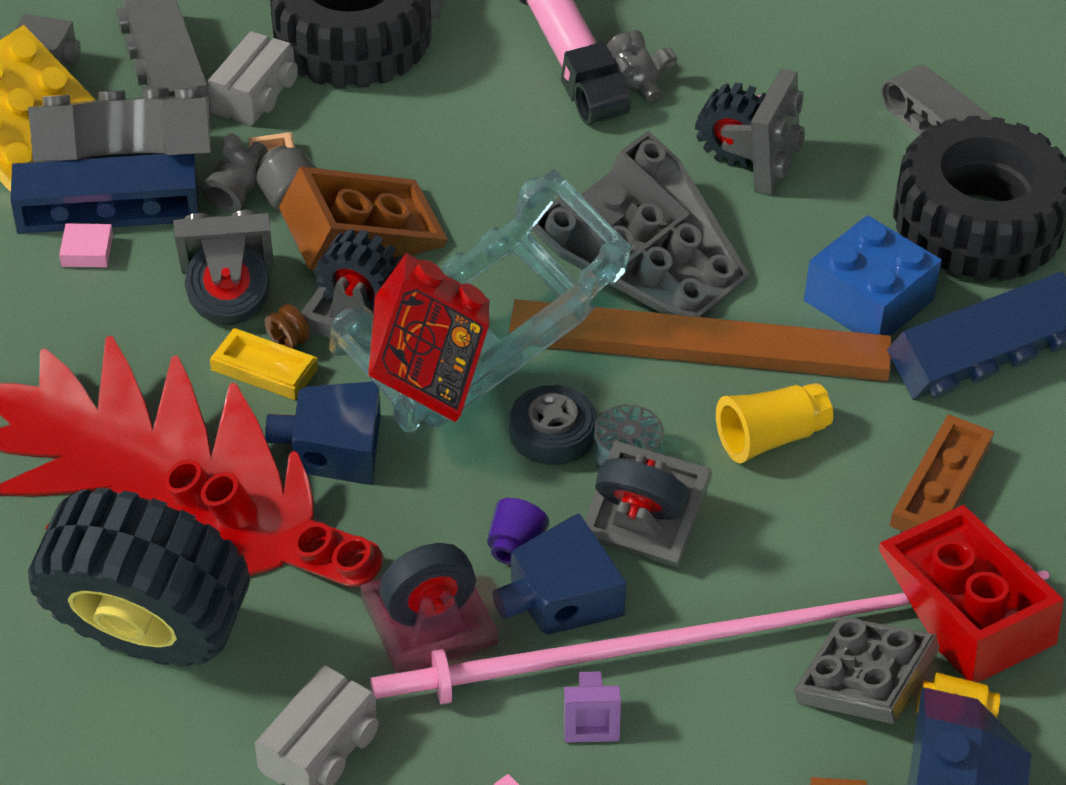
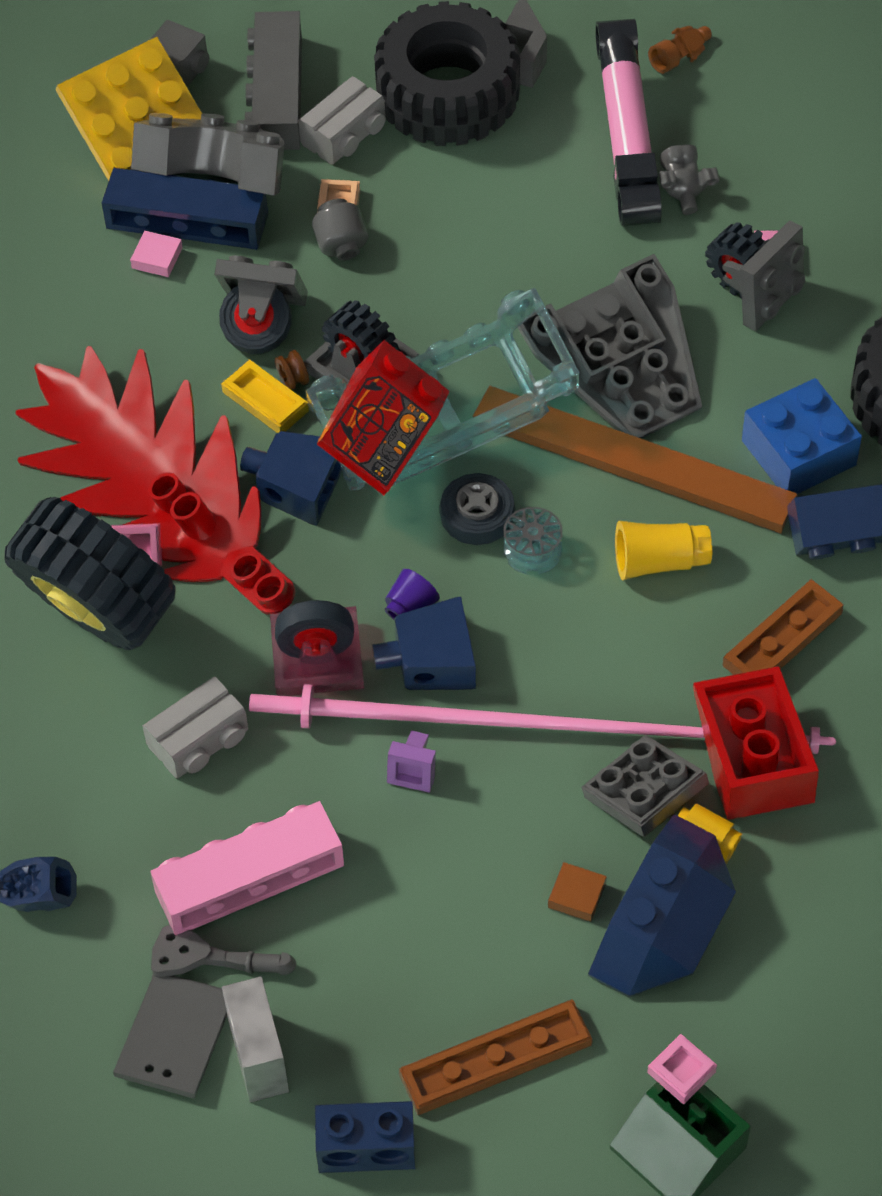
camera: 20 degrees right, 10 degrees up
(234, 178) = (296, 214): dark grey piece -> none
(334, 201) = (390, 275): dark orange slope -> none
(647, 503) = (522, 599): dark grey plate -> none

